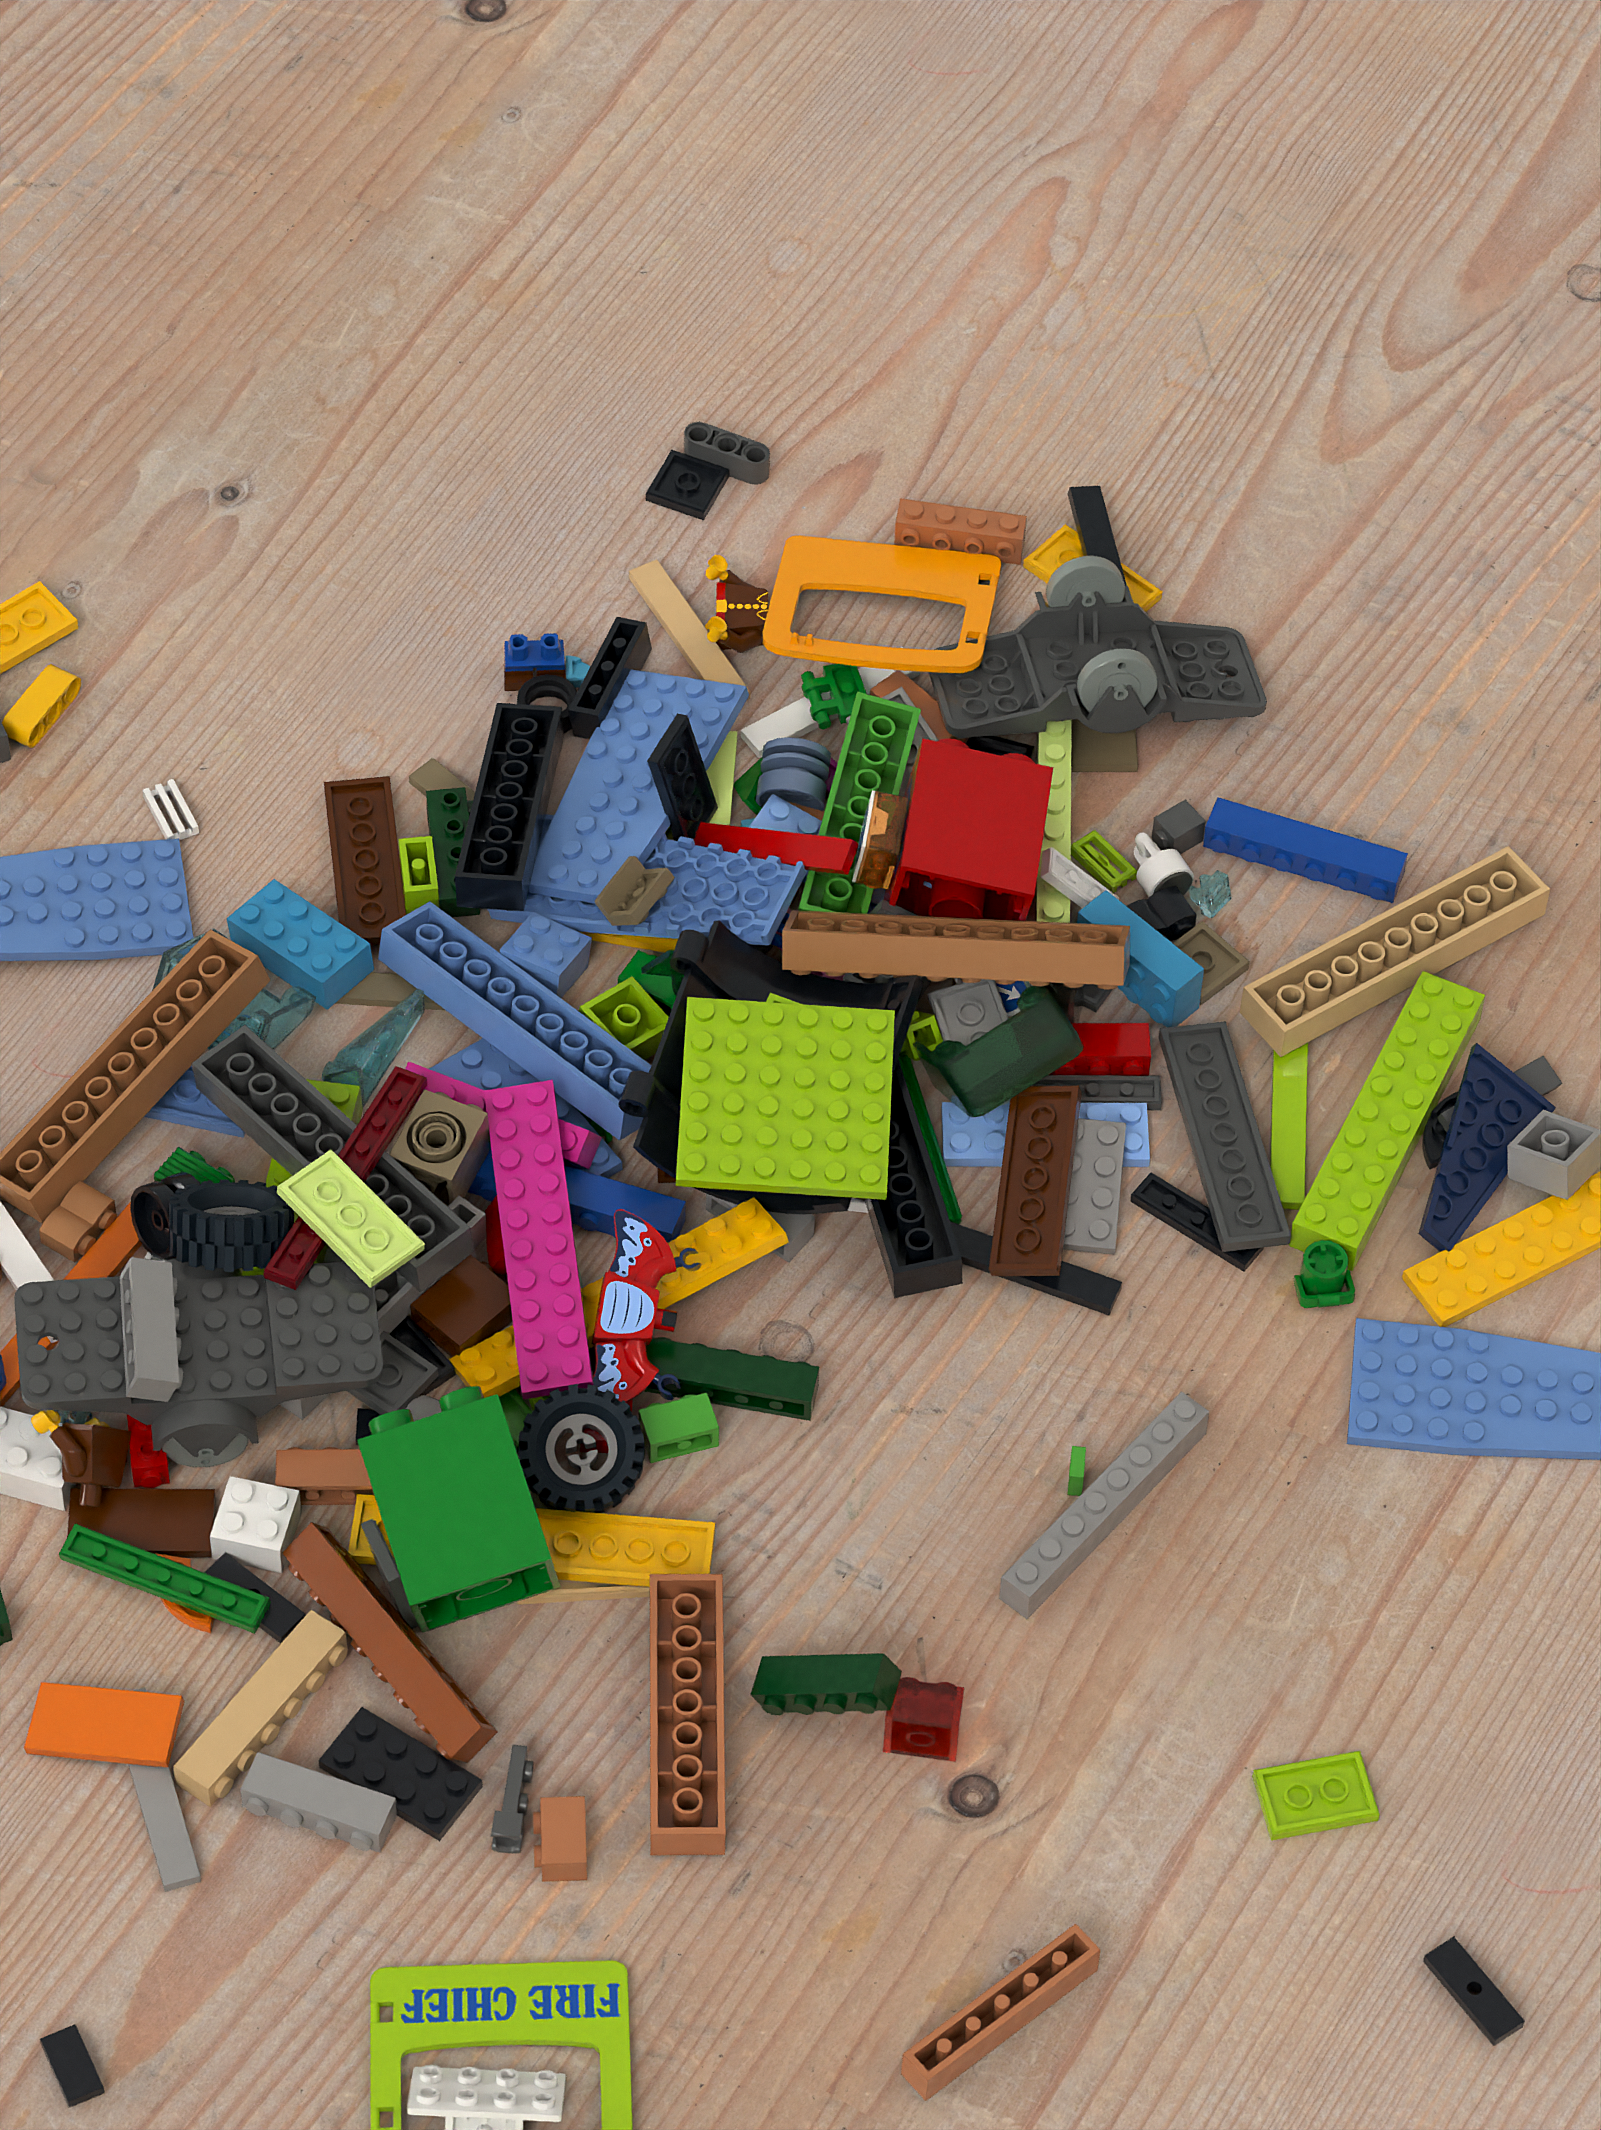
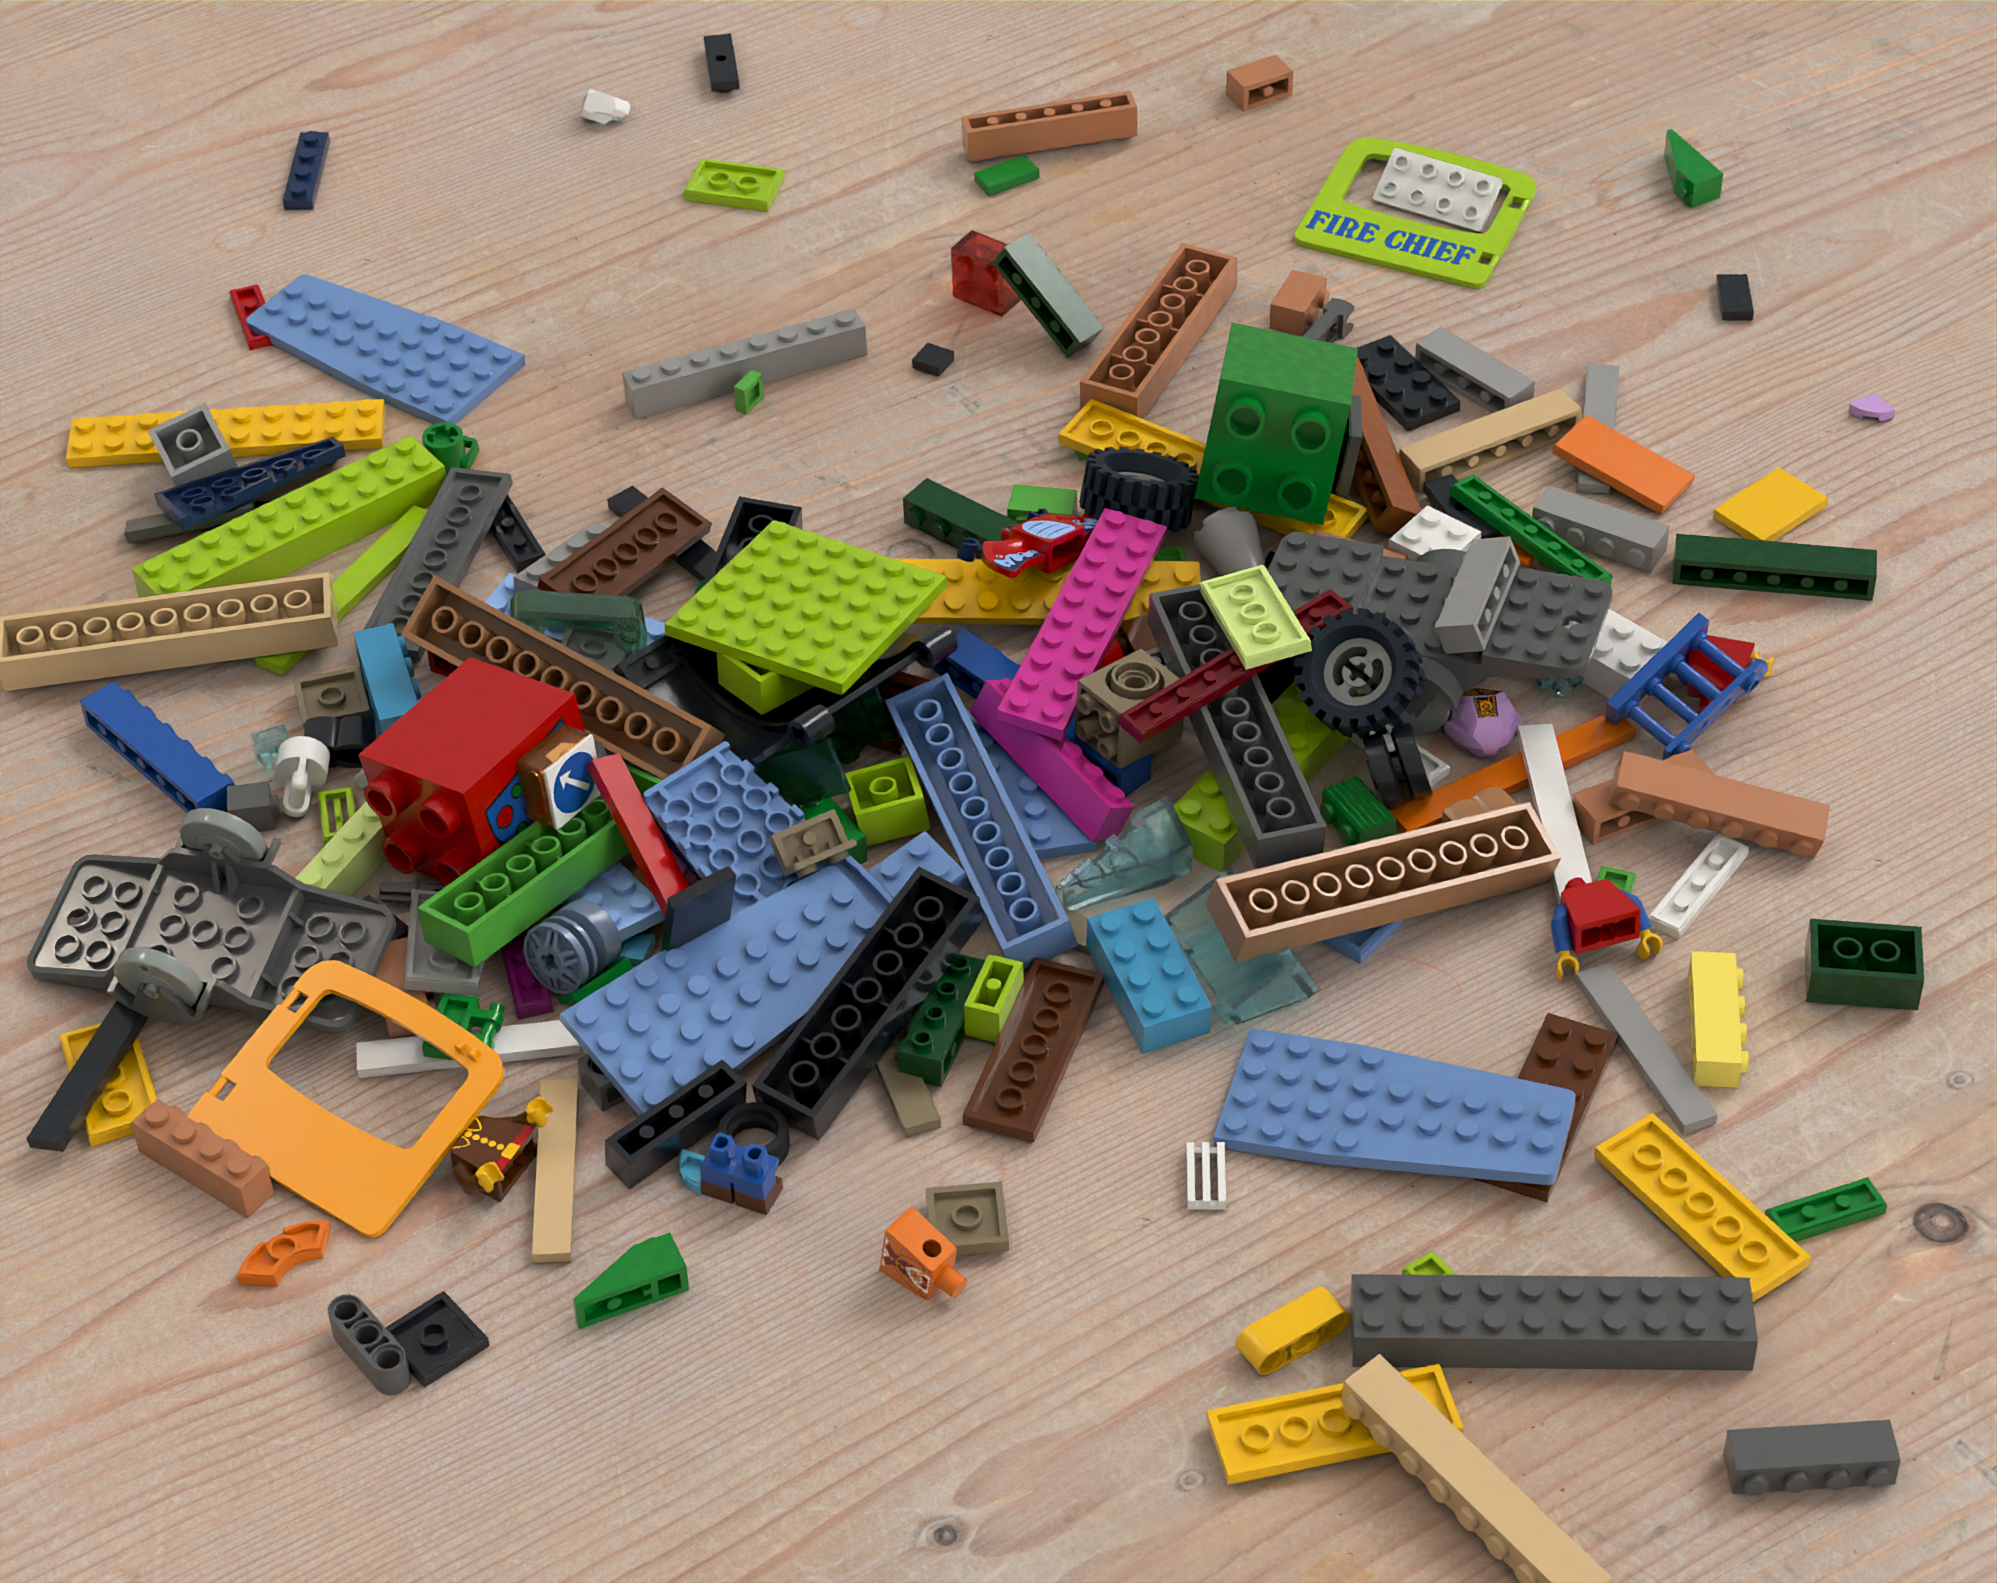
camera: 150 degrees left, 10 degrees down
(97, 1624) = (1602, 528): none -> light grey brick
(339, 703) = (970, 1216): none -> dark tan plate
(353, 645) = (920, 1257): none -> orange torso
(558, 571) = (636, 1279): none -> green slope
(848, 504) = (272, 1259): none -> orange tile
(920, 1608) = (933, 359): none -> black tile
(1014, 1937) = (1006, 175): none -> green tile
(1550, 1849) = (603, 107): none -> white rock

